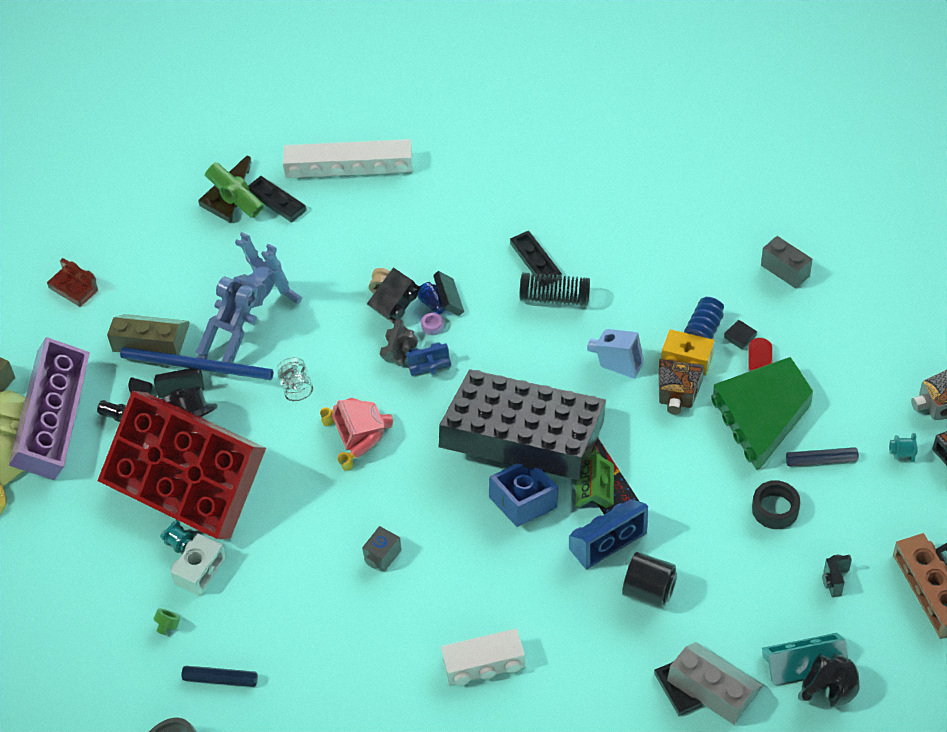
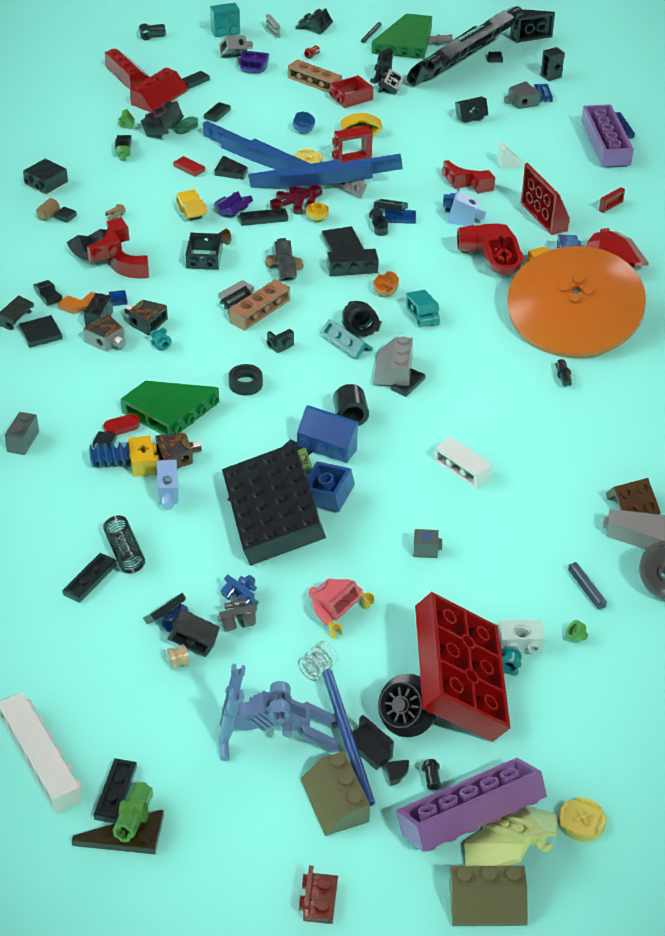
camera: 125 degrees left, 10 degrees down
(432, 324) = (200, 609): lavender tile -> none
(822, 456) = (189, 372): dark blue axle -> none

